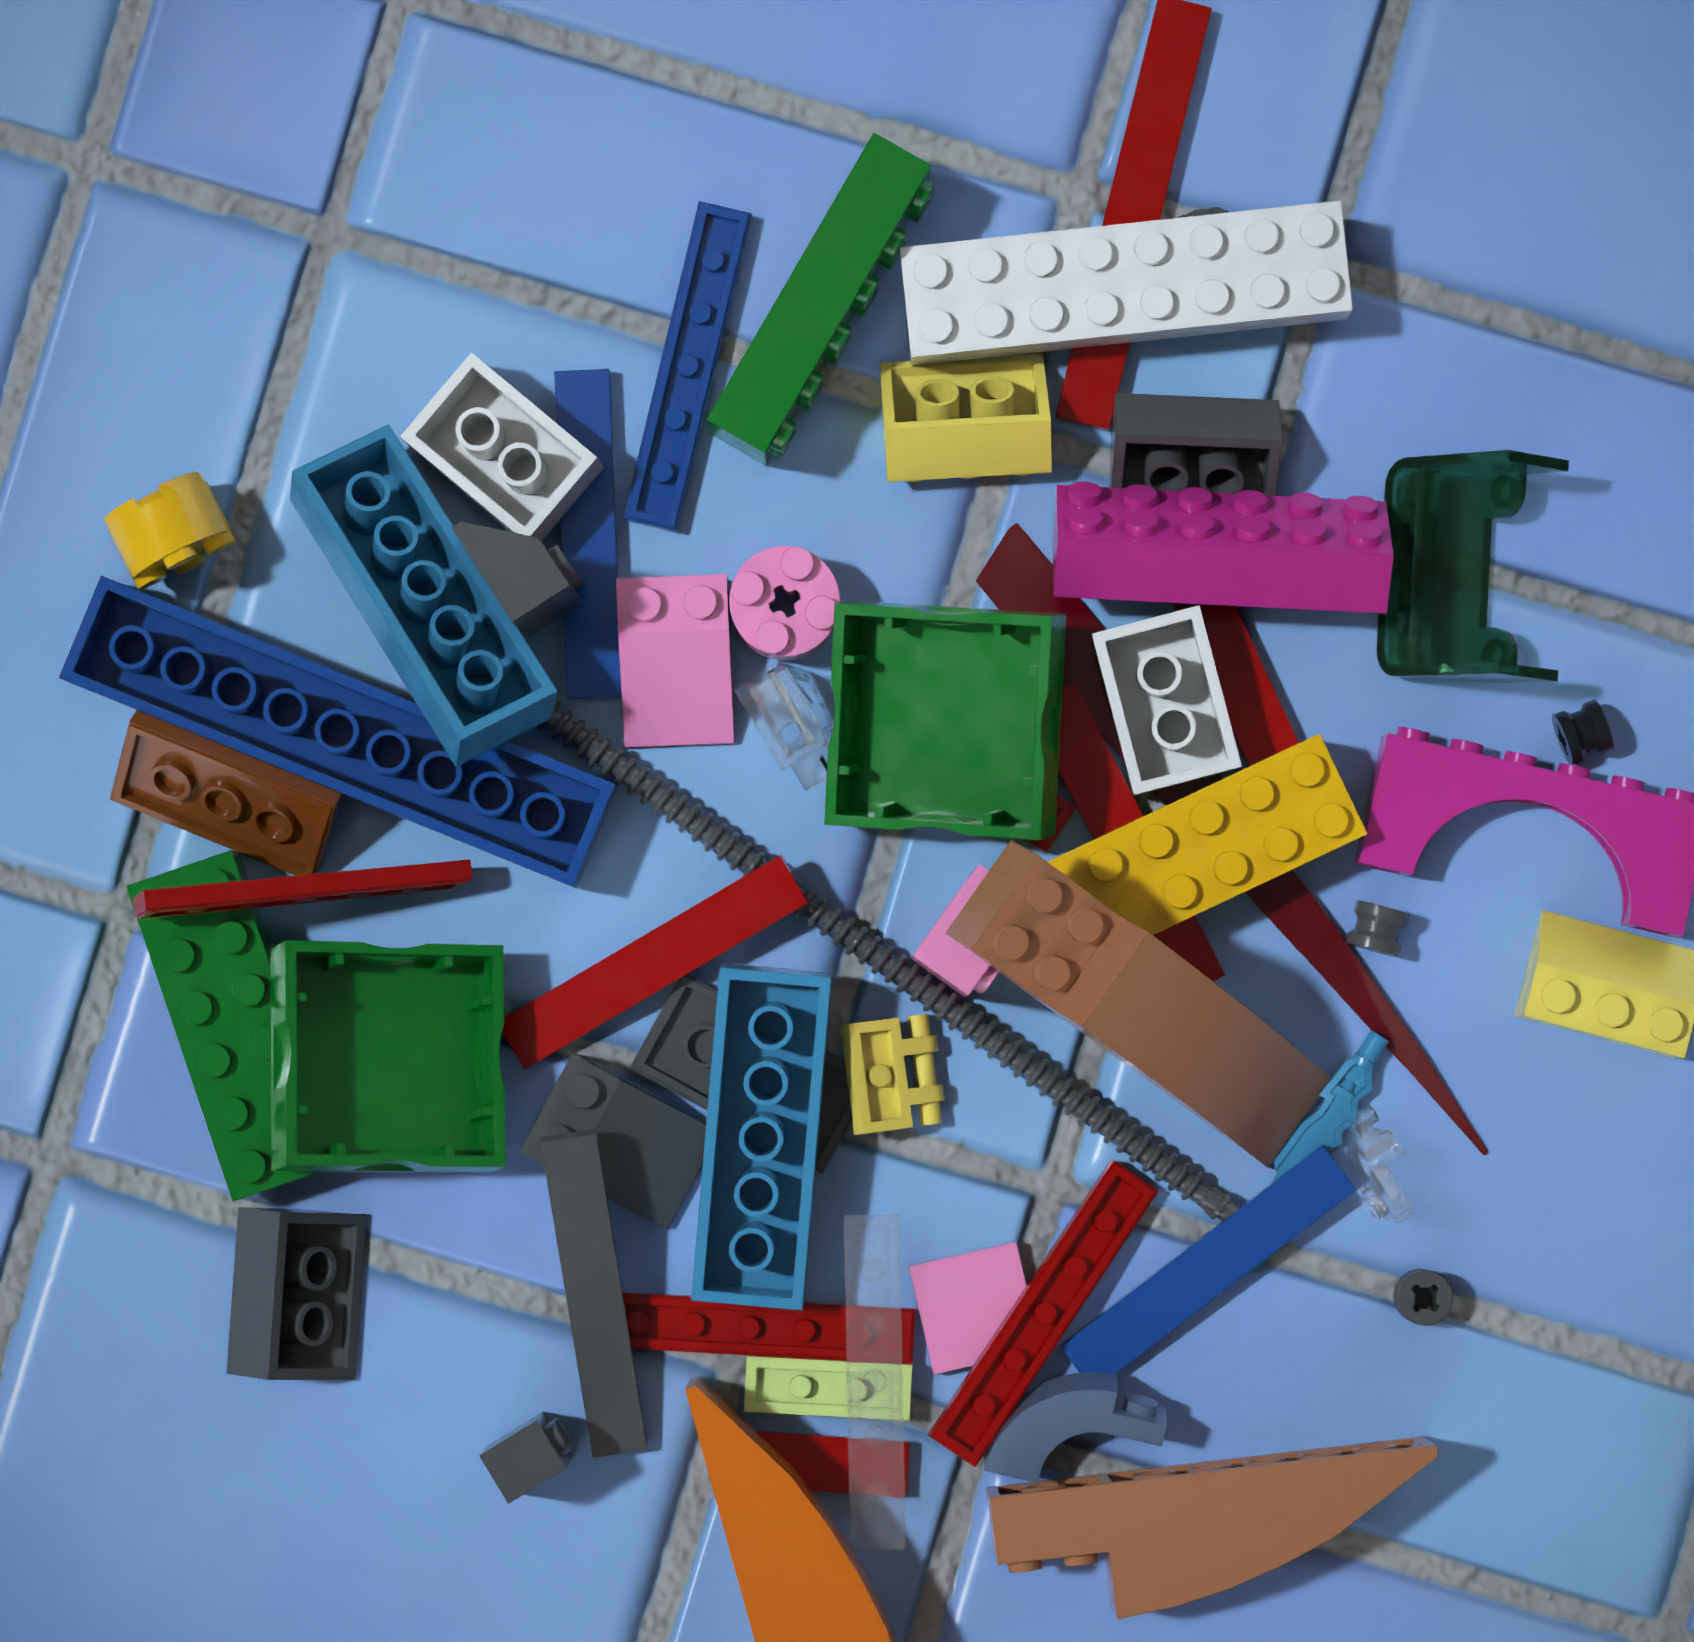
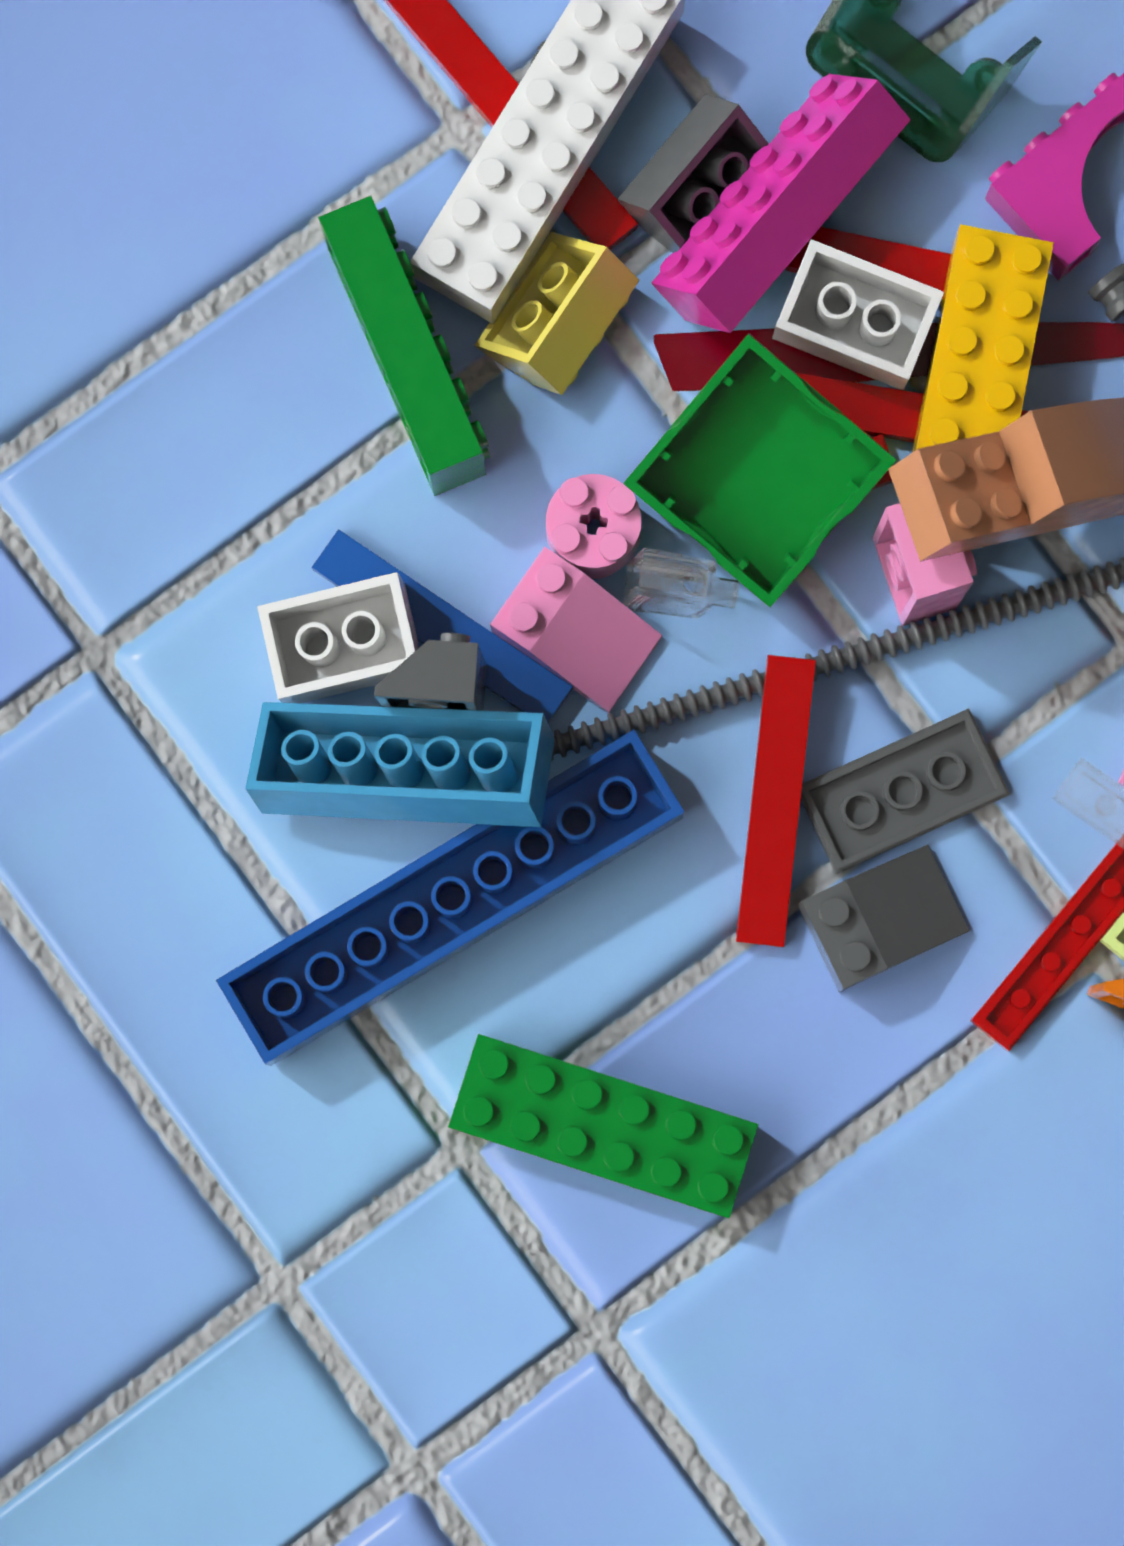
camera: 45 degrees left, 5 degrees down
(169, 529) = (219, 910): yellow brick -> none
(224, 795) = (435, 1012): dark orange tile -> none
(296, 1294) = (825, 1226): dark grey slope -> none
(301, 889) = (543, 1003): red tile -> none
(387, 1058) = (708, 1031): green tile -> none
(528, 1456) = (1064, 1142): dark grey brick -> none
(594, 1292) = (981, 1011): dark grey tile -> none
(687, 367) = (378, 476): blue tile -> none
(761, 1136) = (957, 812): dark azure brick -> none
(879, 1078) = (972, 702): light yellow plate -> none
(1582, 732) = (1084, 60): black wheel -> none

